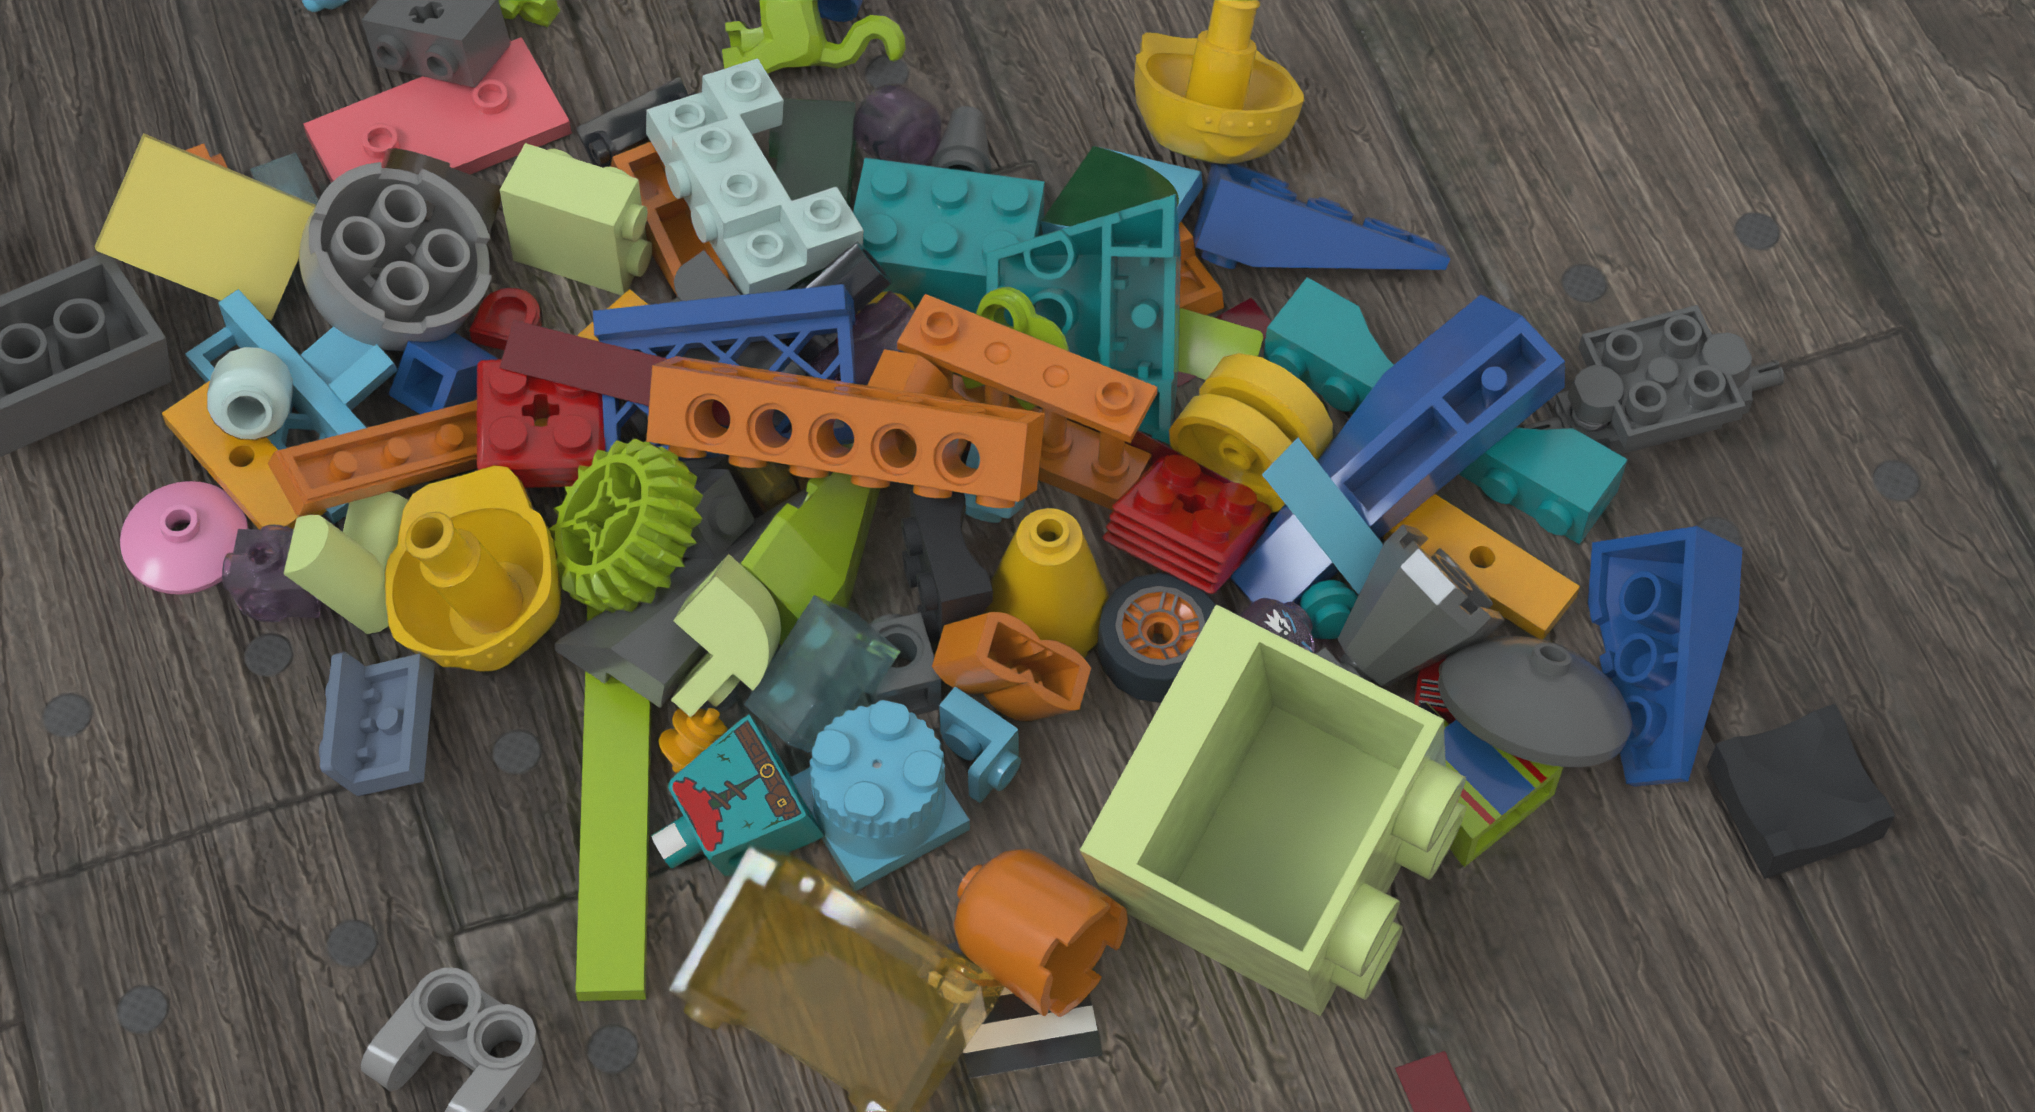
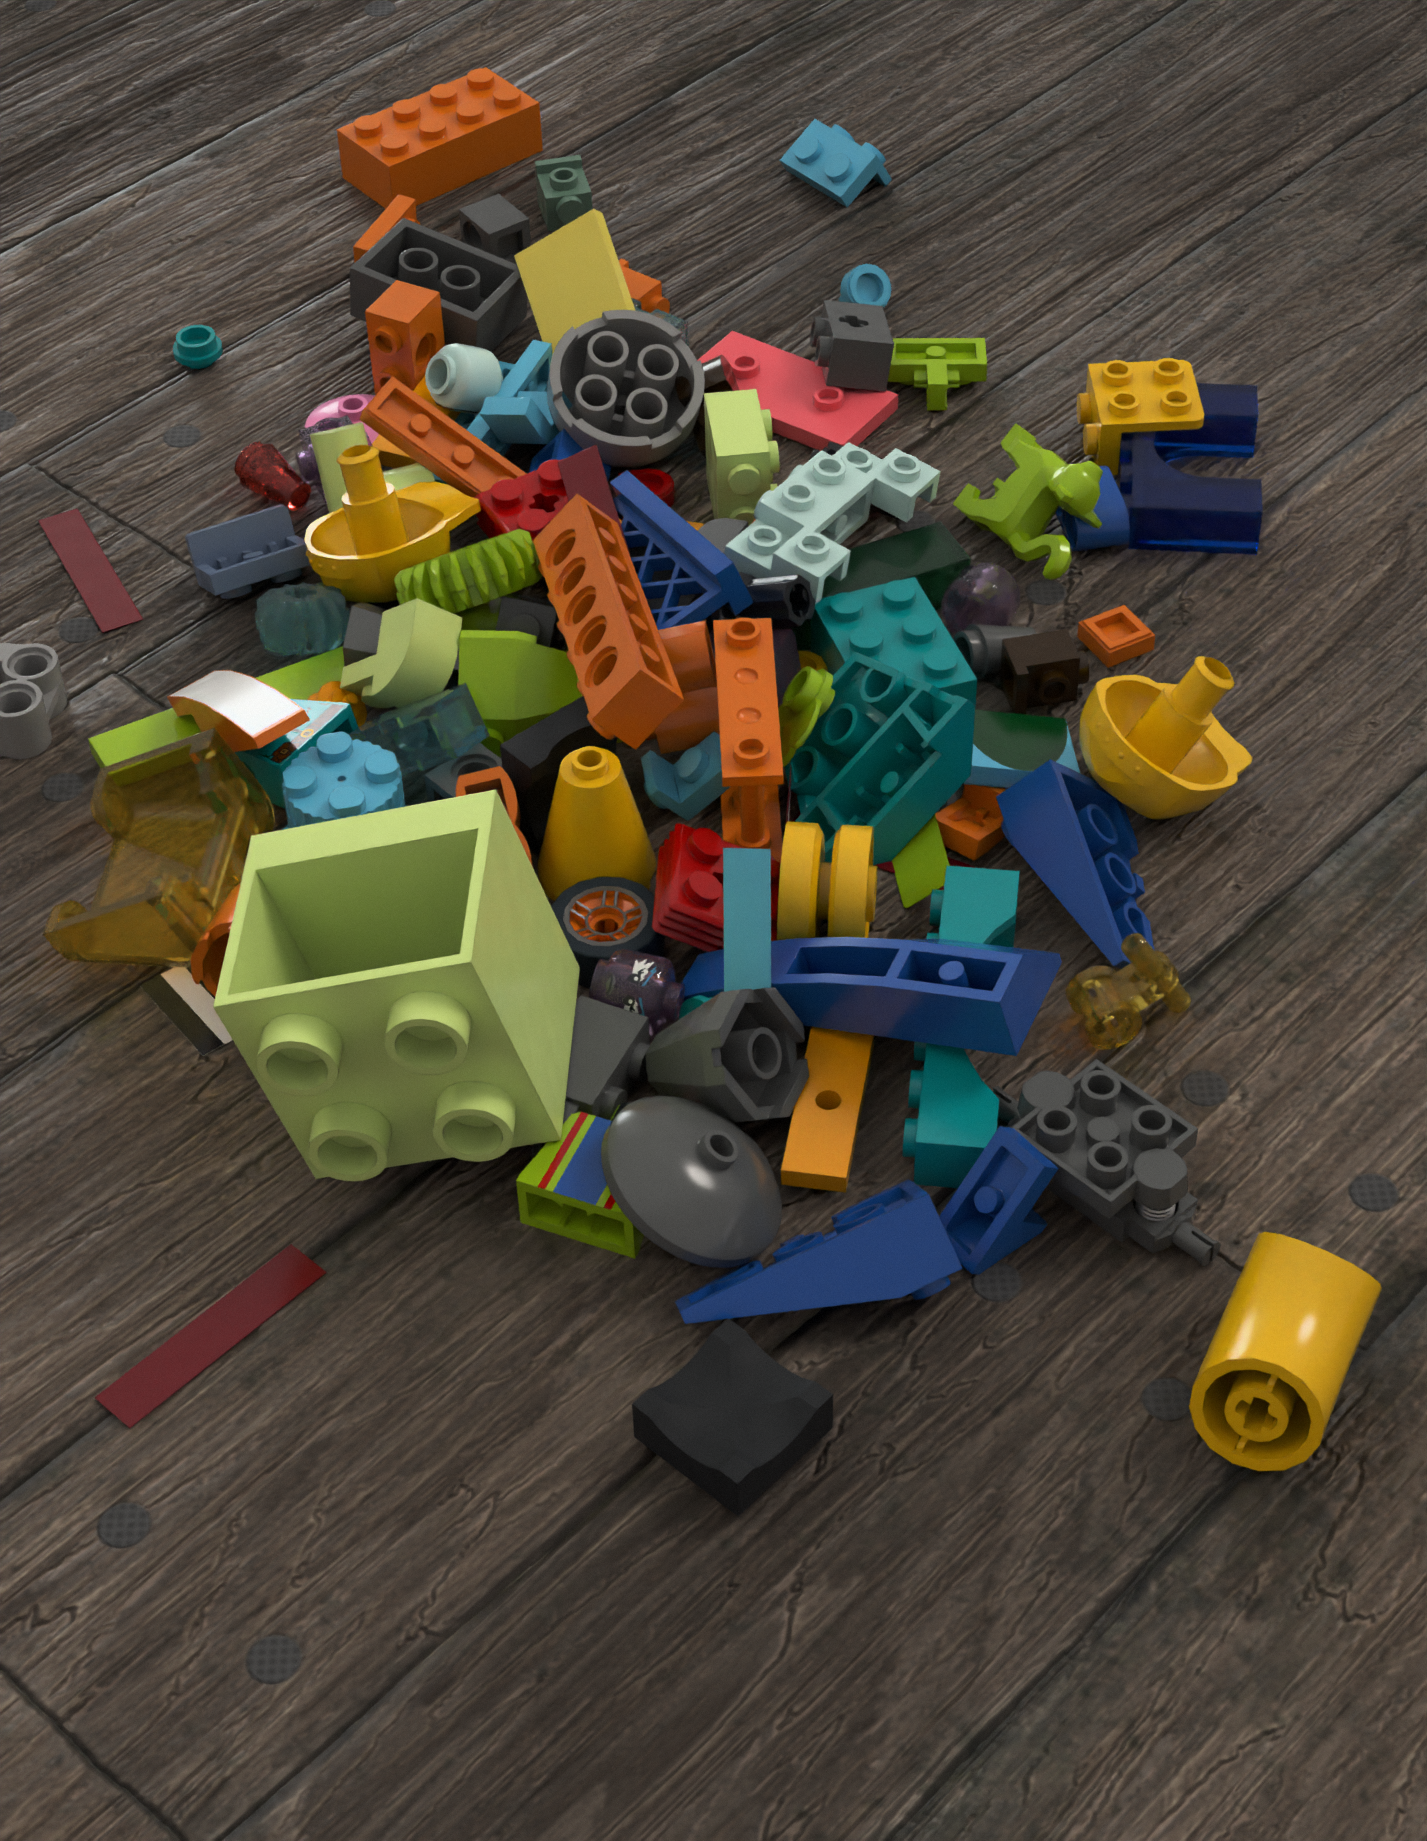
camera: 65 degrees right, 15 degrees down
(133, 421) = (404, 333): none -> orange brick
(241, 649) = (270, 475): none -> clear red cone
(252, 894) = (90, 570): none -> dark red sticker
(531, 712) = (302, 619): none -> clear light blue gear
(703, 817) = (239, 708): none -> slope
(995, 51) = (1116, 636): none -> orange tile
(1025, 132) = (1041, 670): none -> dark brown brick
(1484, 243) = (1125, 993): none -> clear yellow piece
(1667, 479) = (995, 1201): none -> blue slope
(1936, 373) = (1281, 1353): none -> yellow brick

